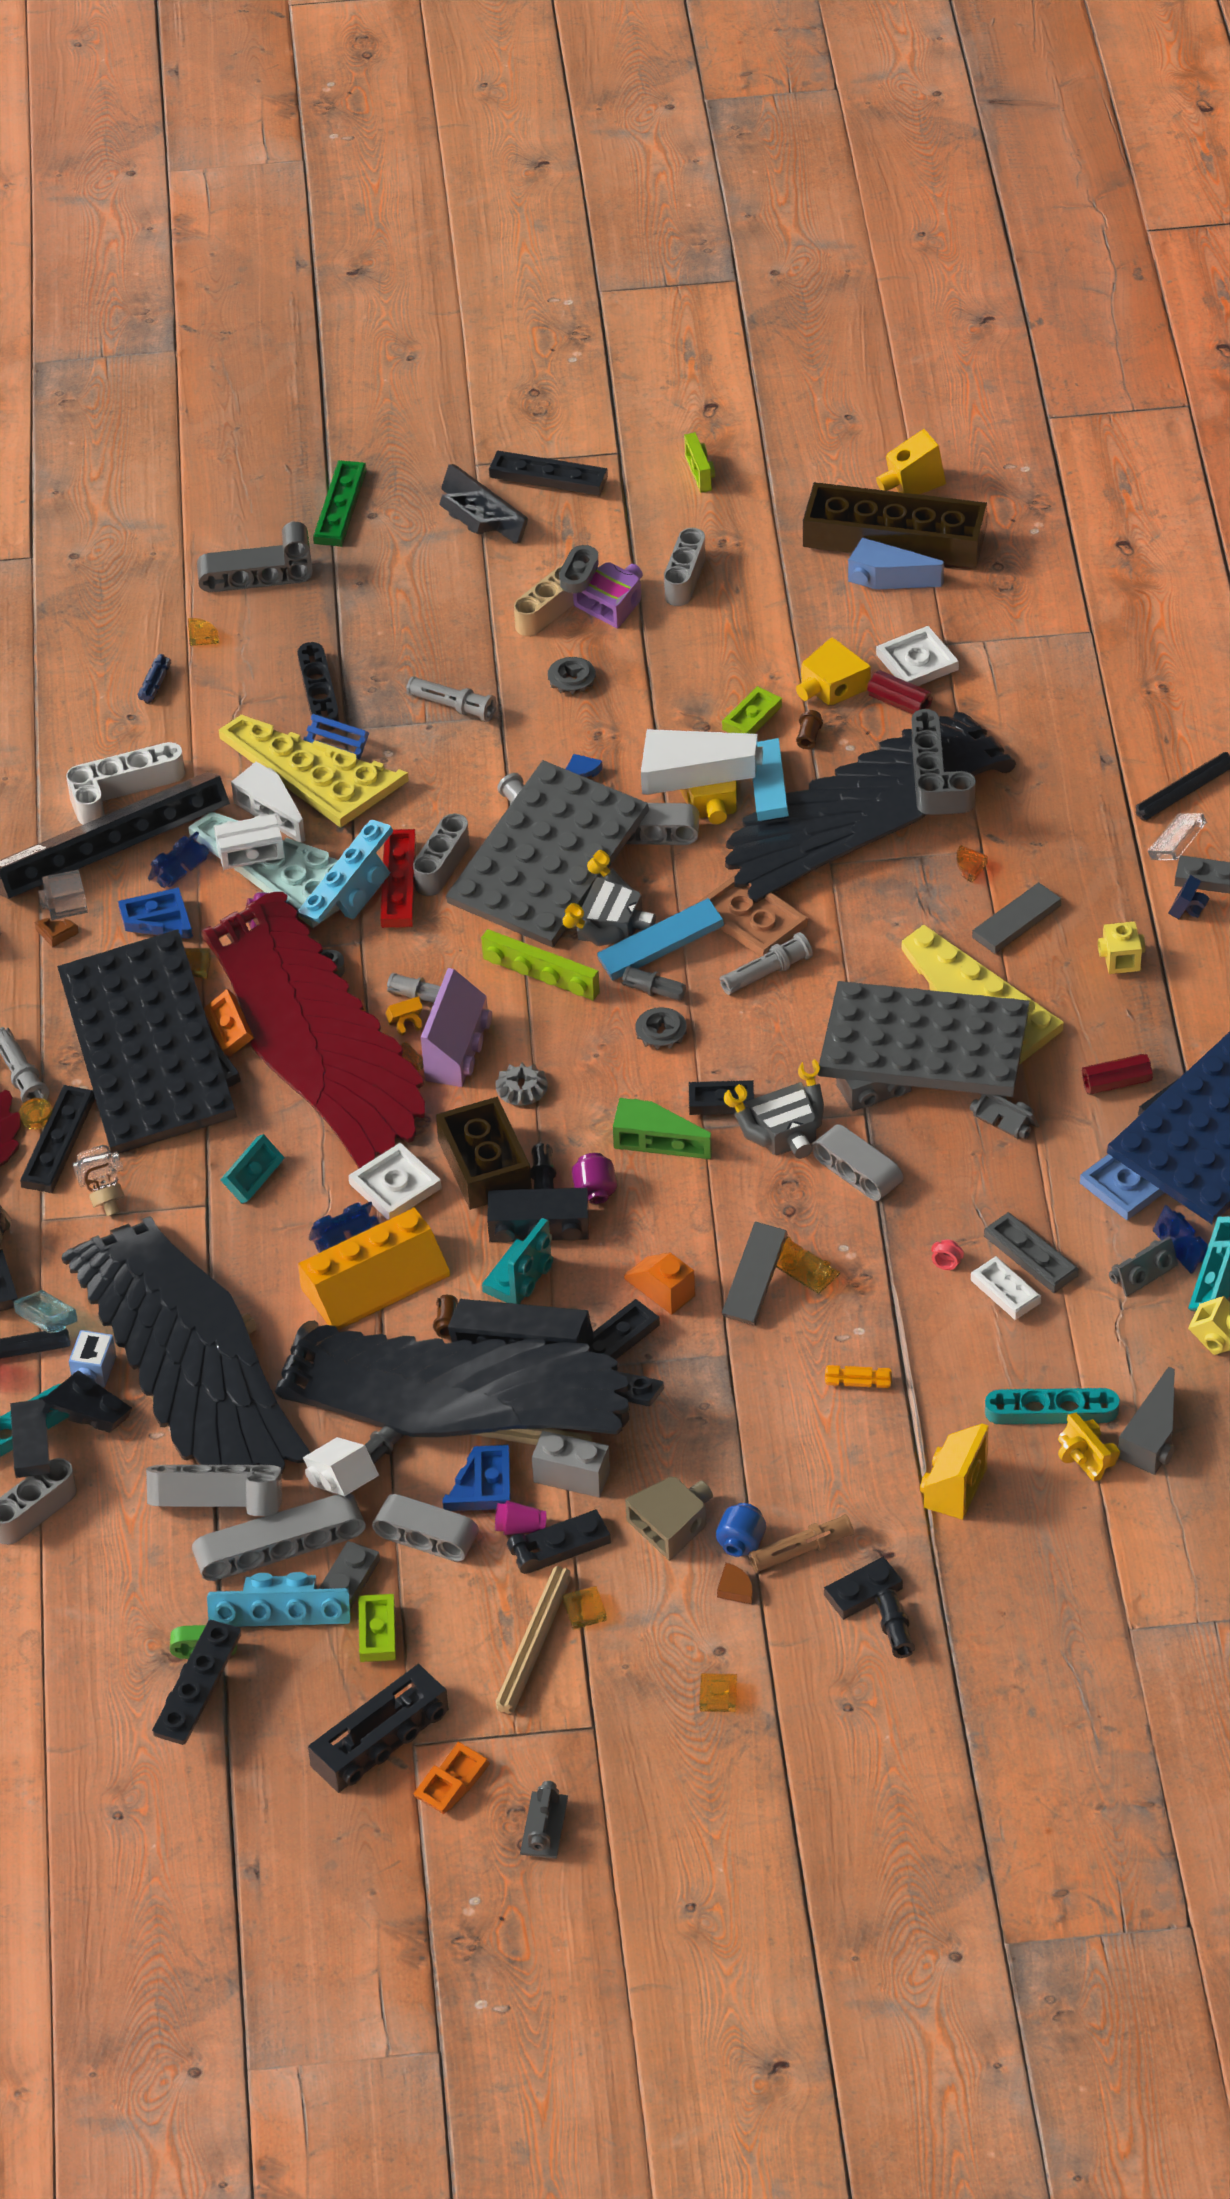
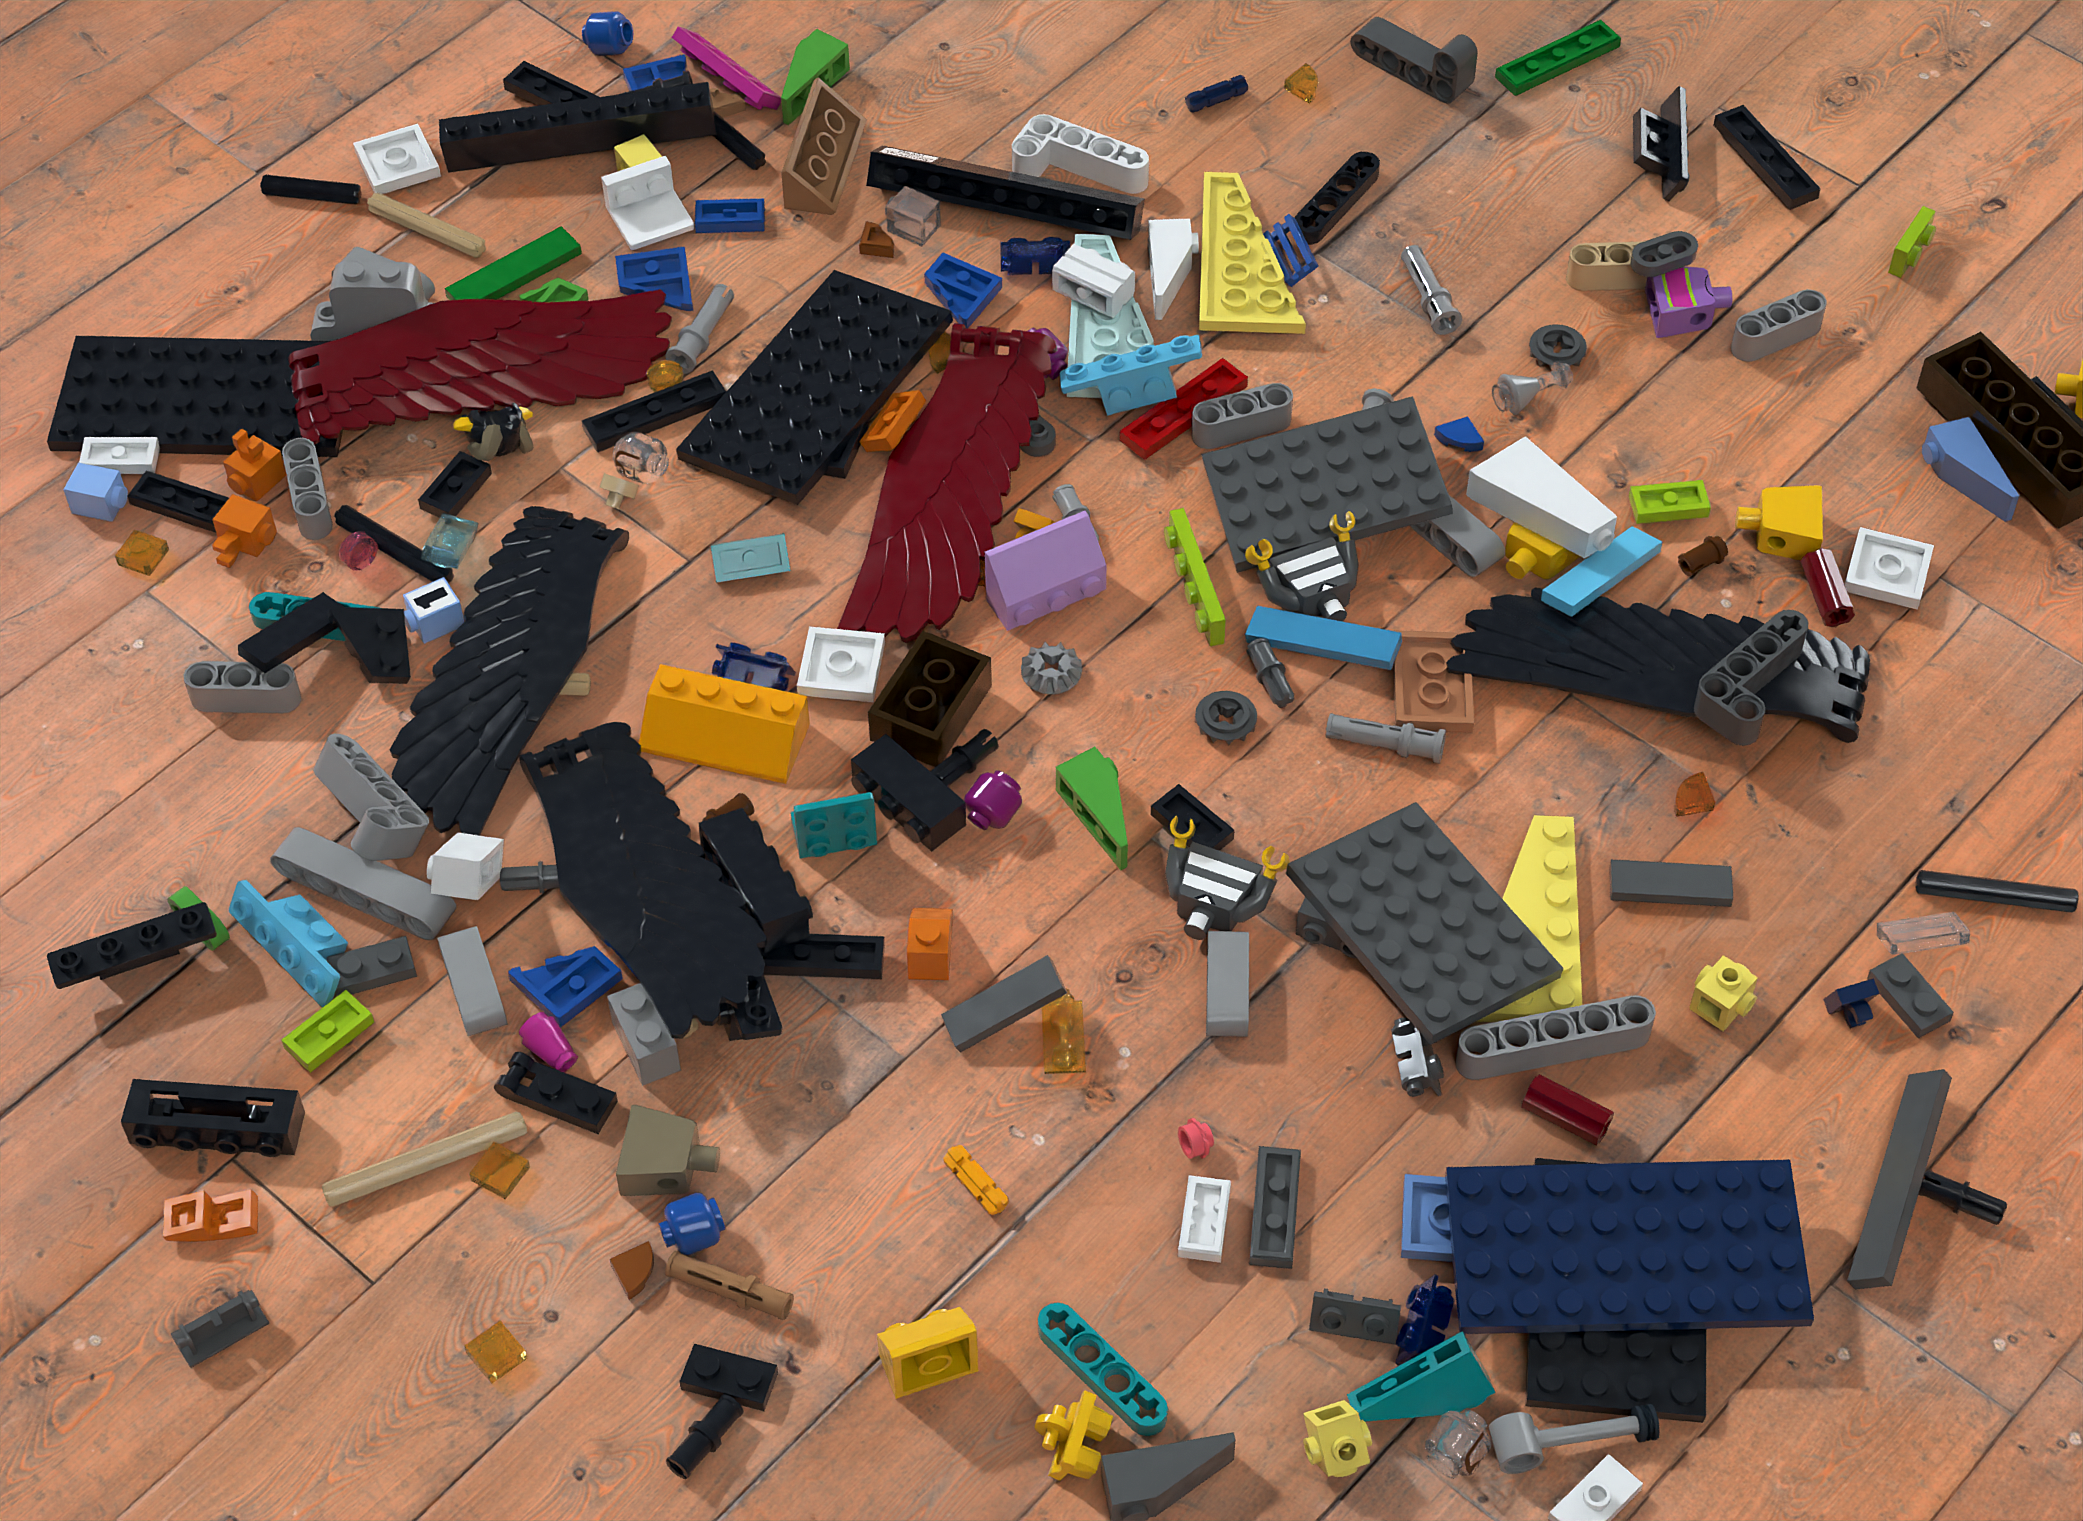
camera: 45 degrees right, 5 degrees up
(583, 718) = (1516, 391): none -> piece
(1064, 1043) = (1541, 1050): none -> light grey beam

